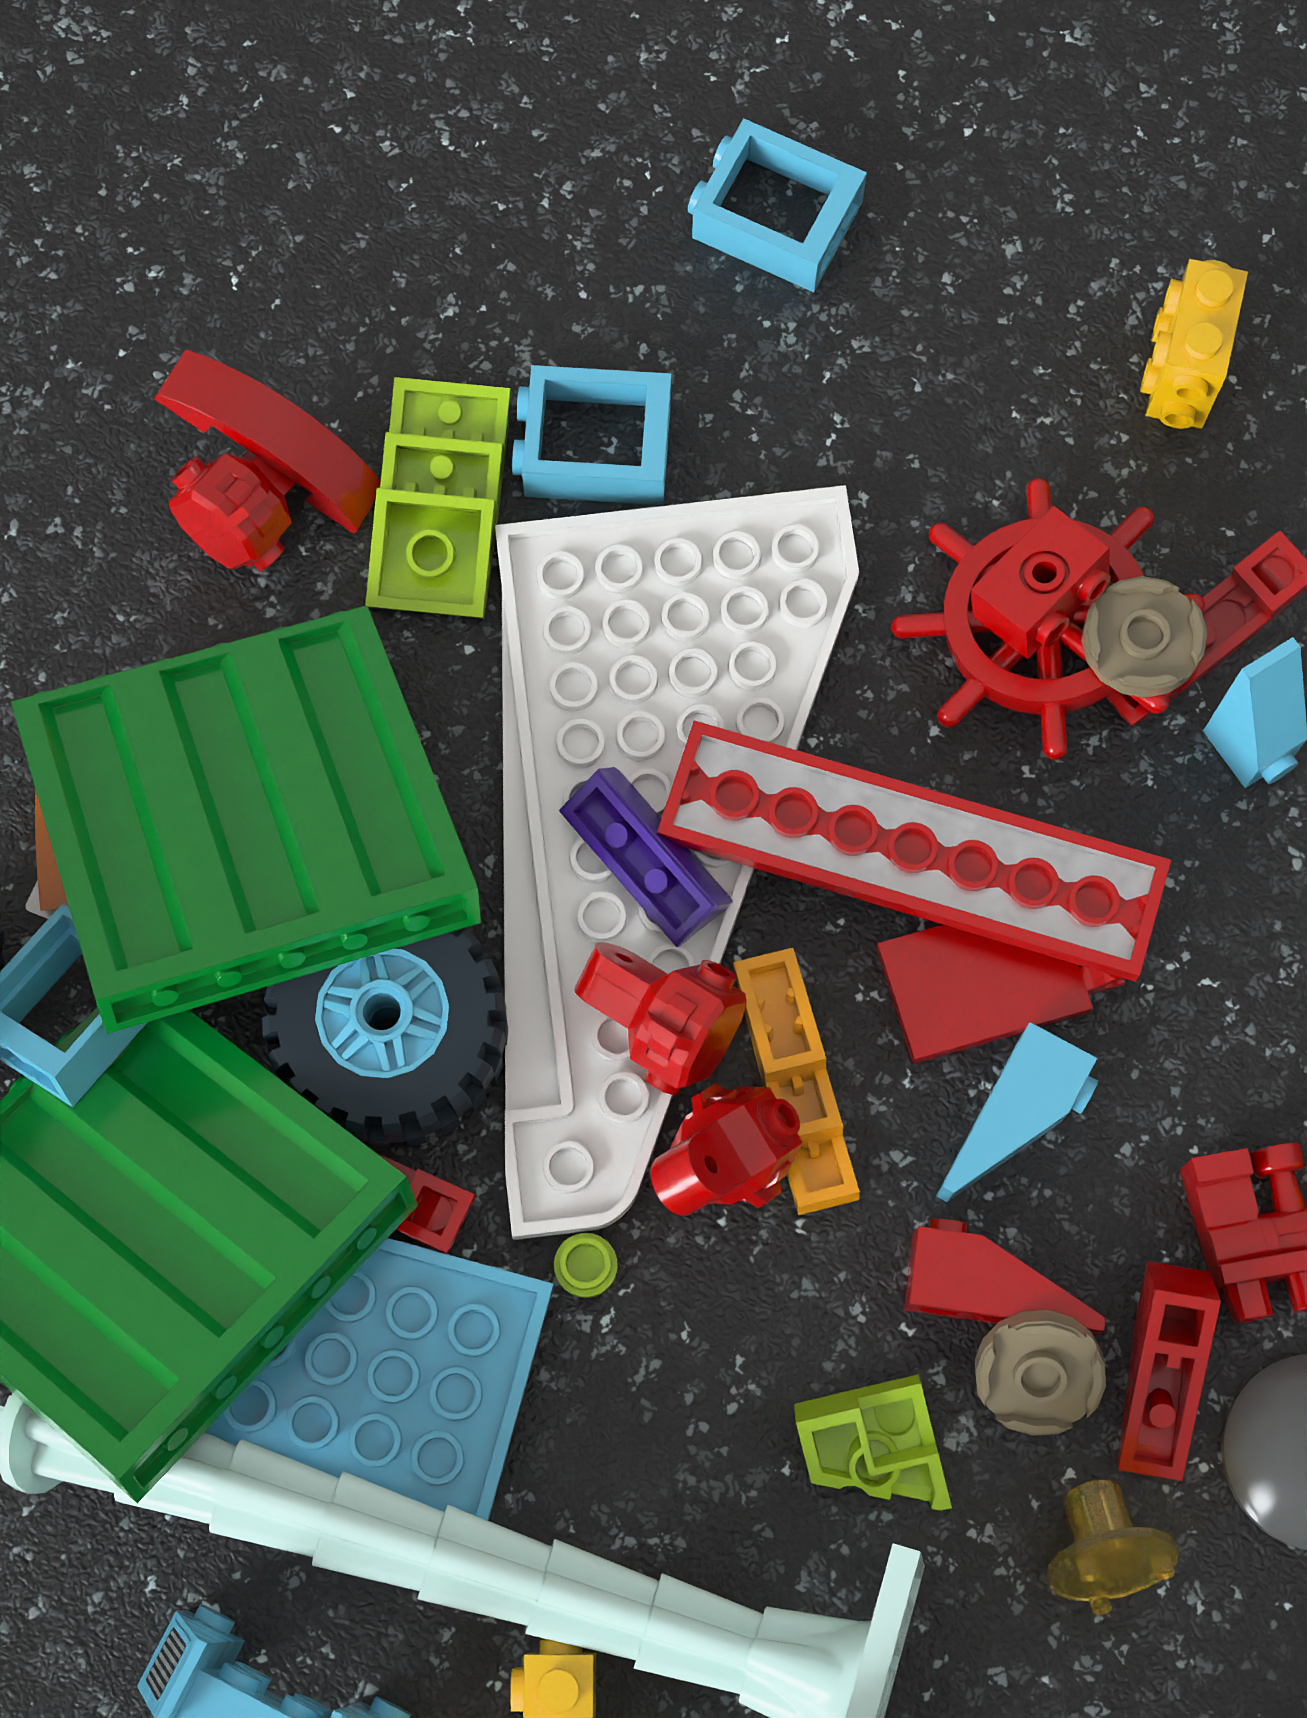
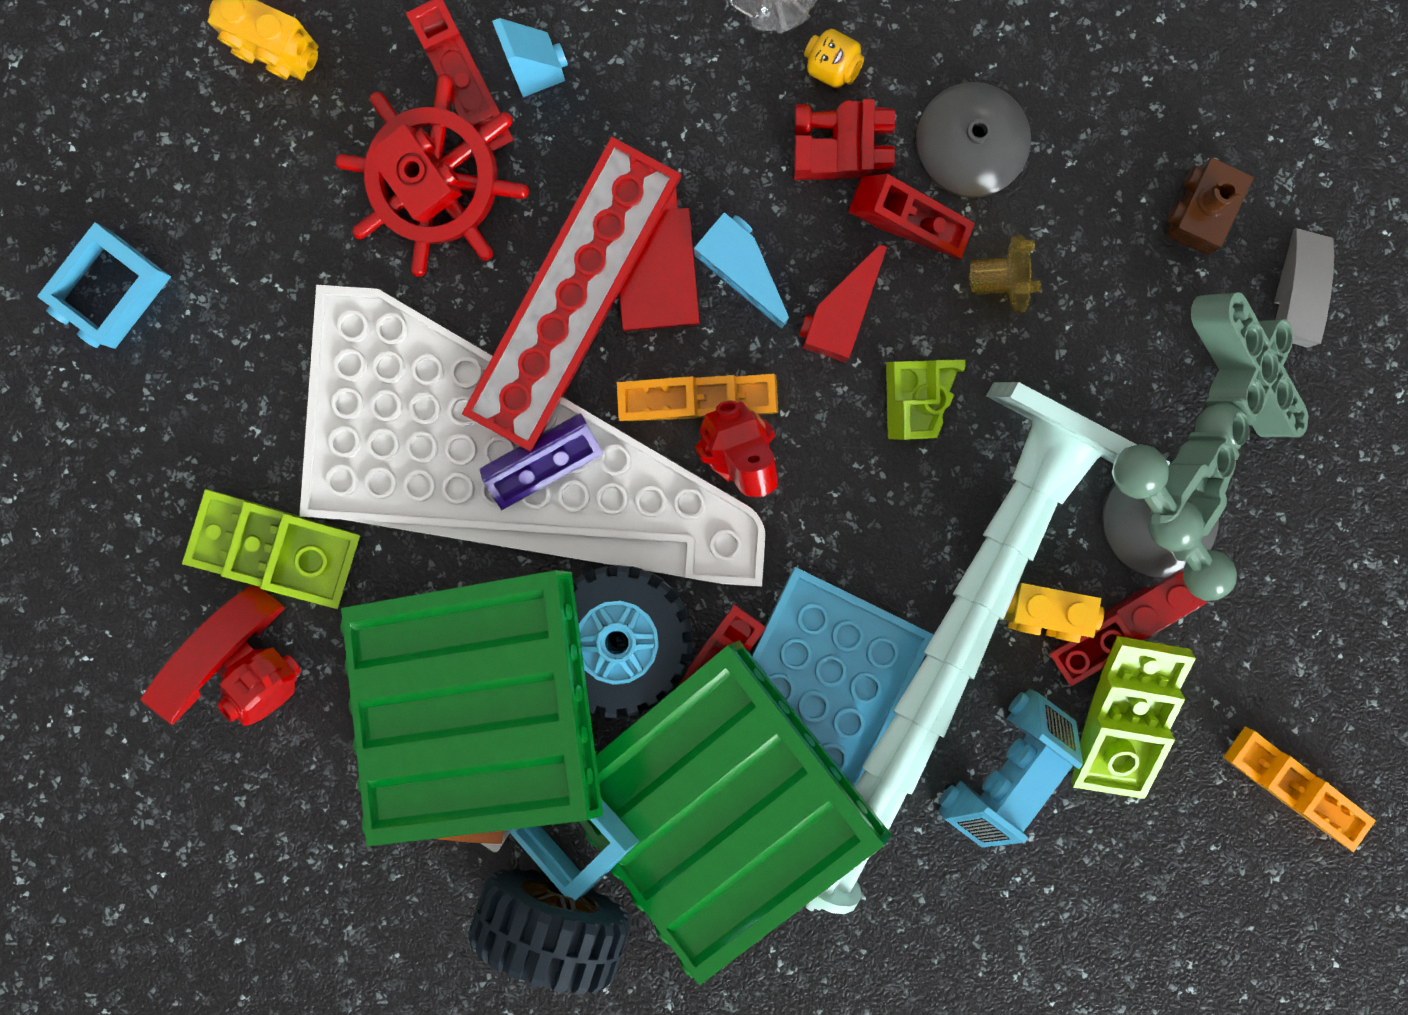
camera: 80 degrees left, 15 degrees up
(585, 1265) = (785, 545): lime plate -> none
(590, 480) = (279, 451): medium azure window -> none
(673, 1020) = (653, 465): red piece -> none
(1040, 1372) = (901, 290): dark tan tile -> none
(1144, 637) = (462, 117): dark tan tile -> none

